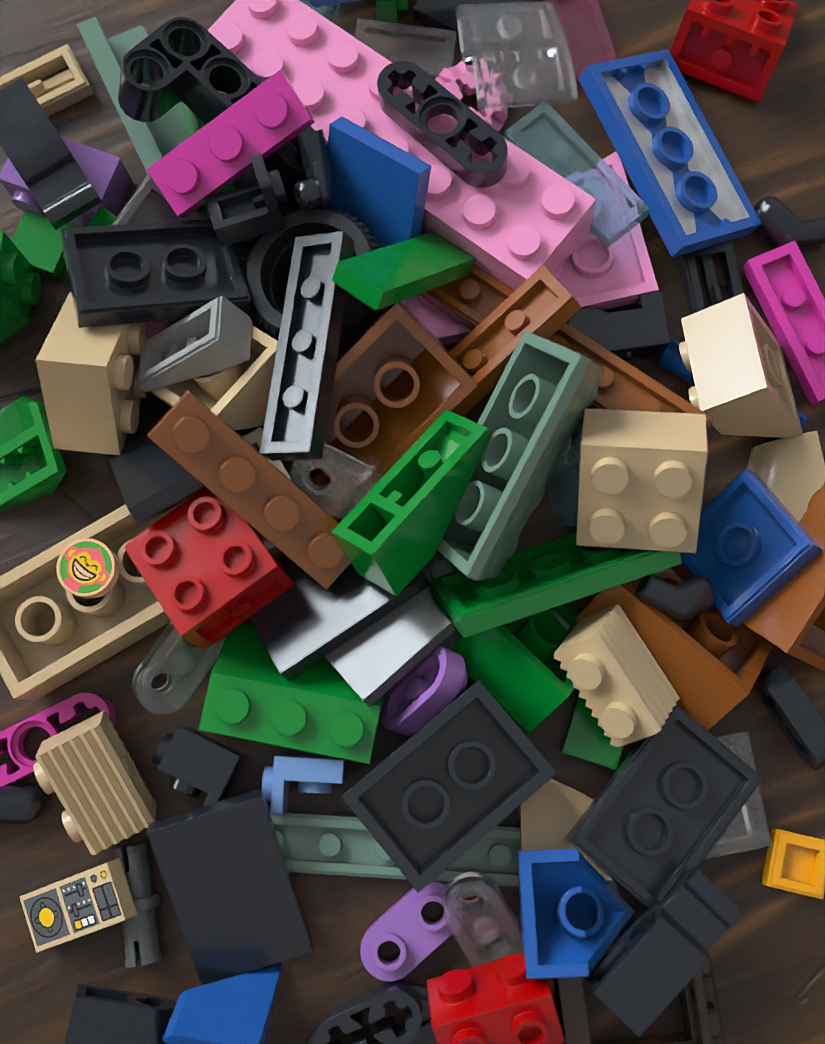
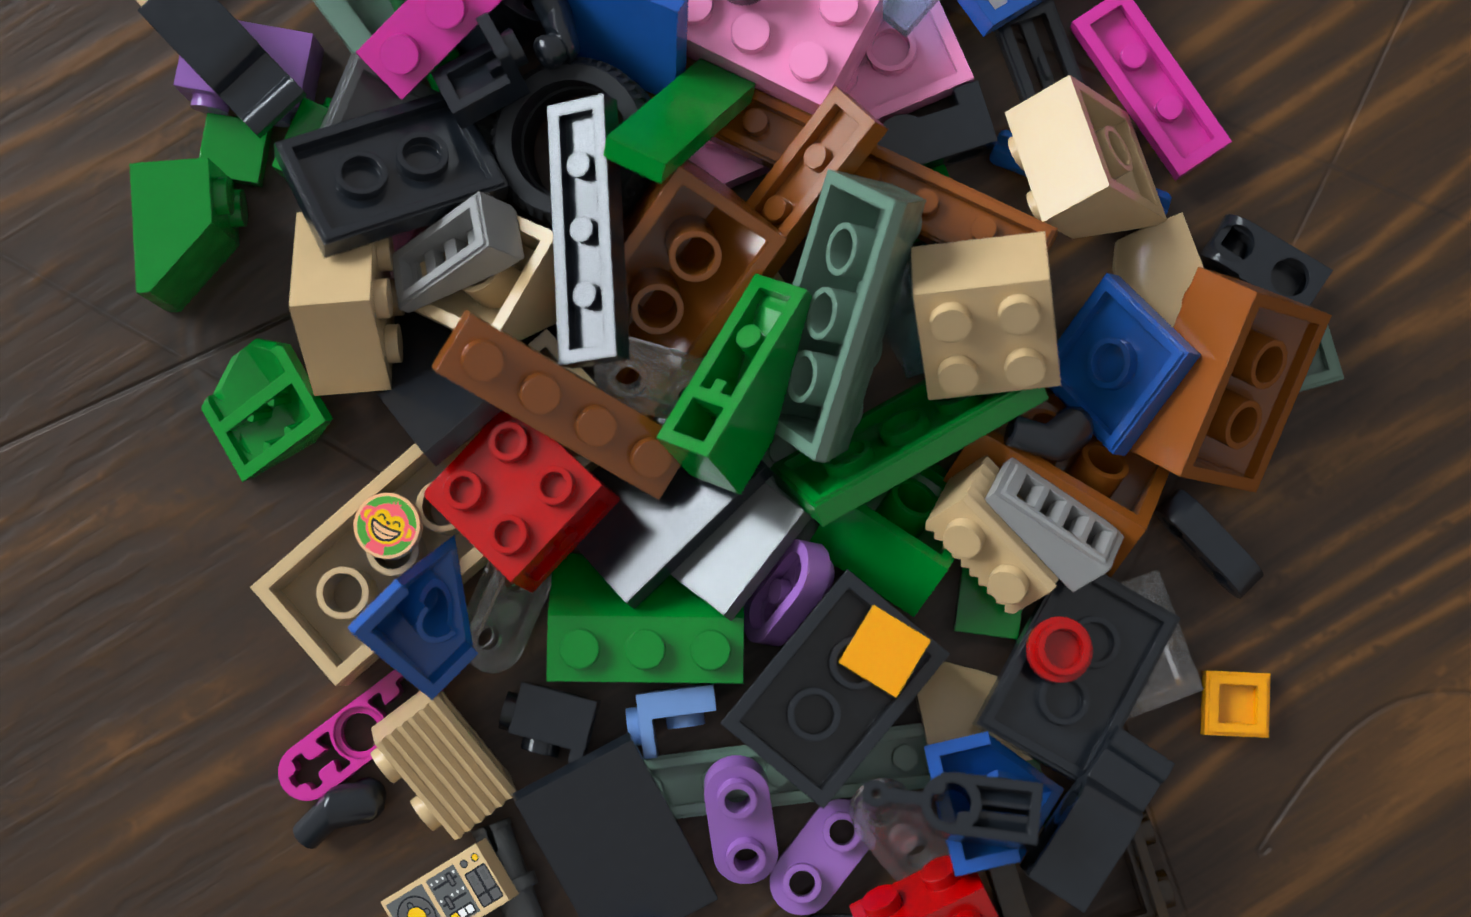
camera: 10 degrees left, 5 degrees up
(95, 656) = (422, 622): none -> blue slope
(345, 888) = (742, 823): none -> medium lavender plate
(499, 759) = (884, 651): none -> light orange tile
(563, 908) = (972, 826): none -> black piece
(654, 787) = (1059, 649): none -> red plate
(669, 677) = (1054, 525): none -> light grey slope

